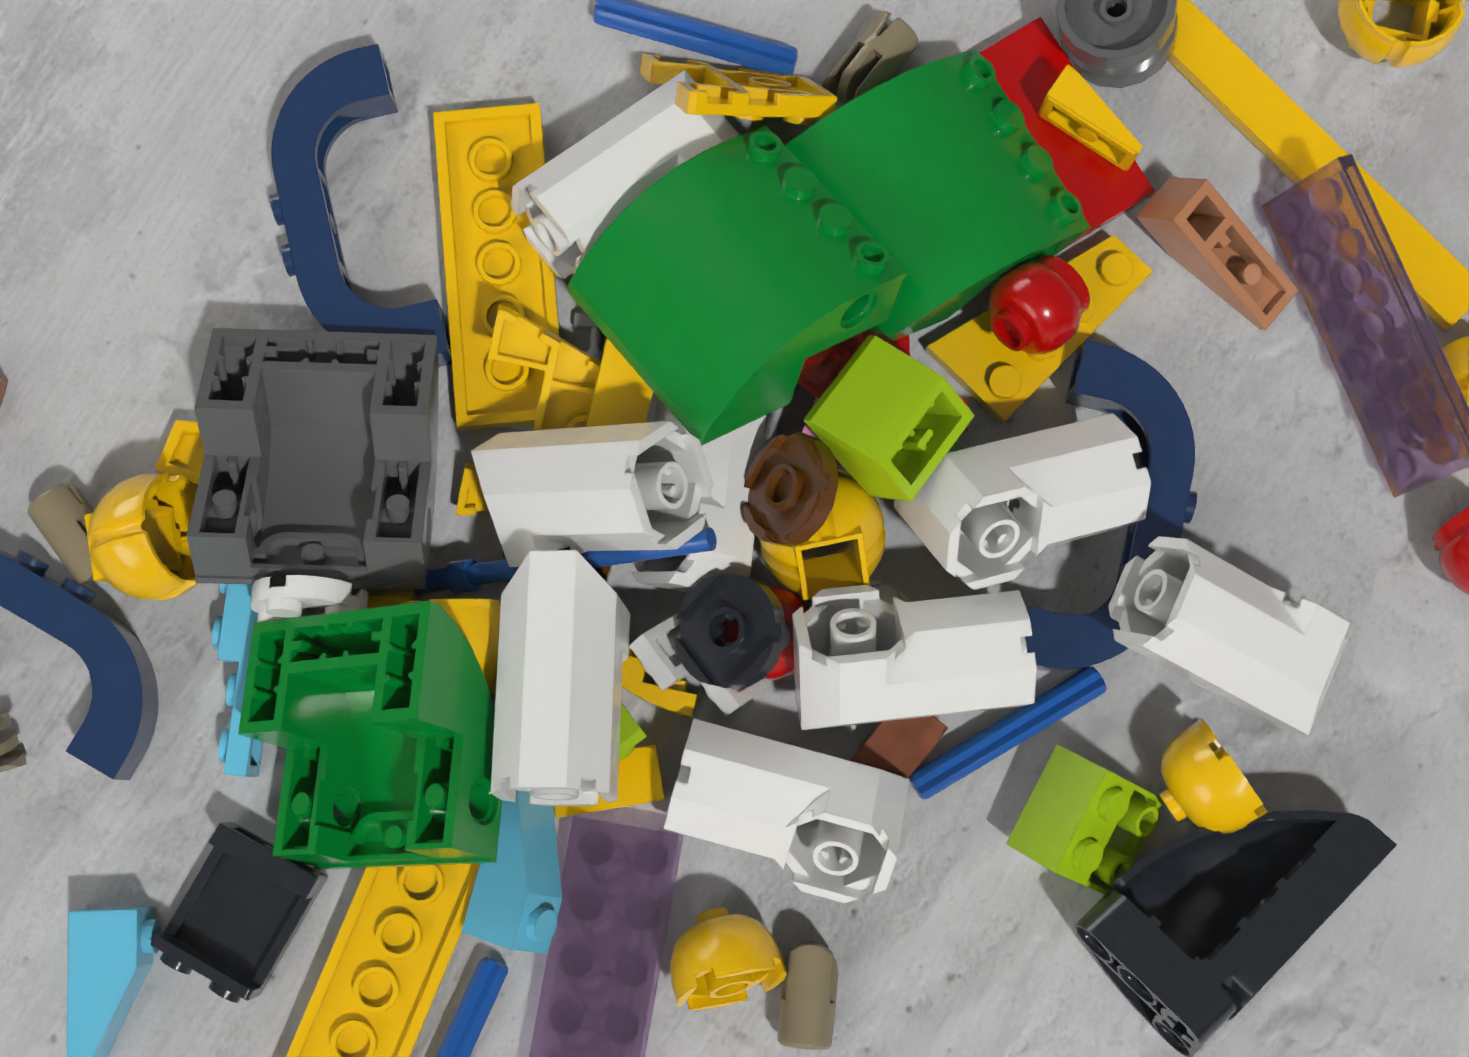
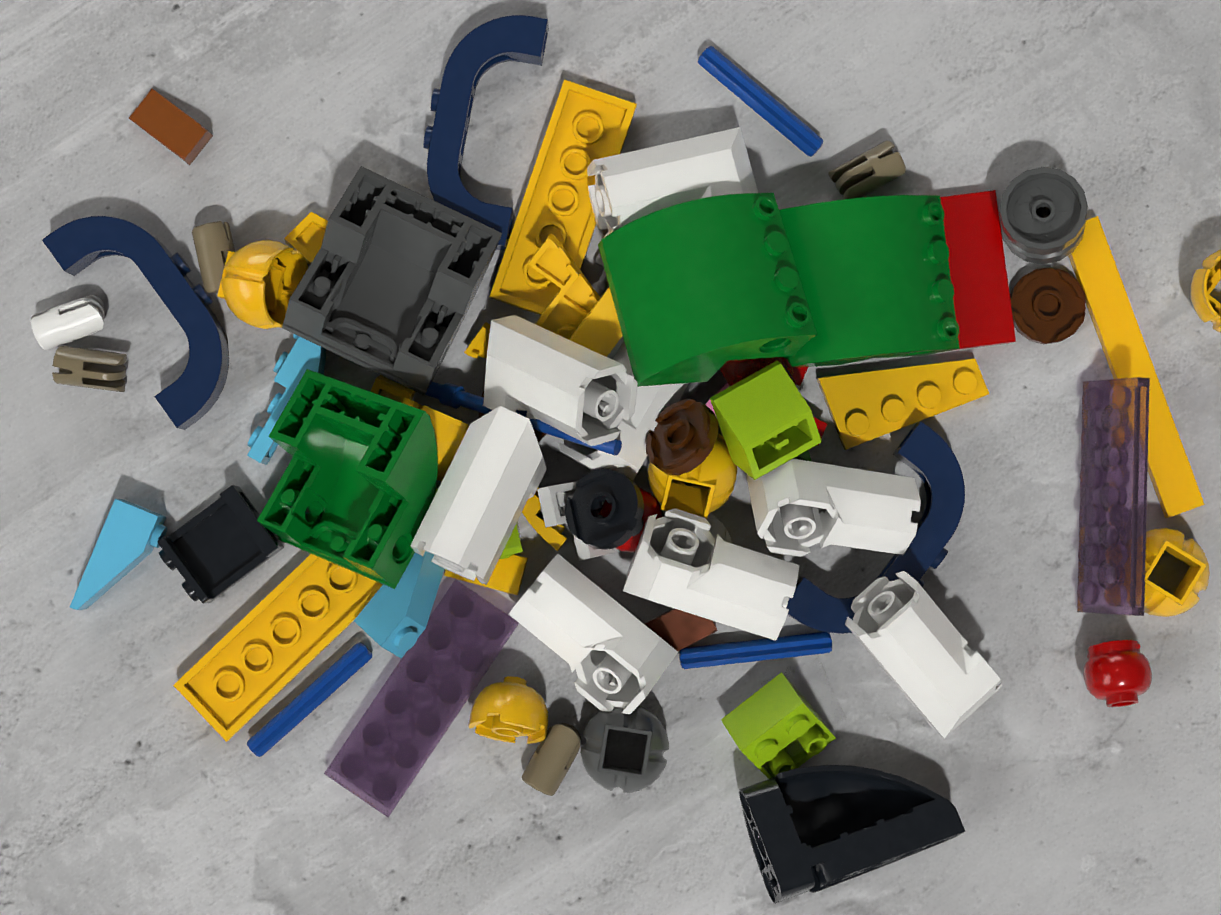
camera: 25 degrees right, 5 degrees up
(304, 597) = (346, 369): white plate -> none
(741, 93) = (772, 160): yellow wing -> none
(859, 959) = (640, 722): none -> dark grey piece
(1038, 305) = (898, 386): red piece -> none
(1087, 118) = (989, 270): yellow slope -> none
(1177, 129) = (1047, 305): none -> reddish brown tile
(1207, 783) = (866, 738): yellow cylinder -> none
(1217, 248) = (1038, 399): nougat slope -> none

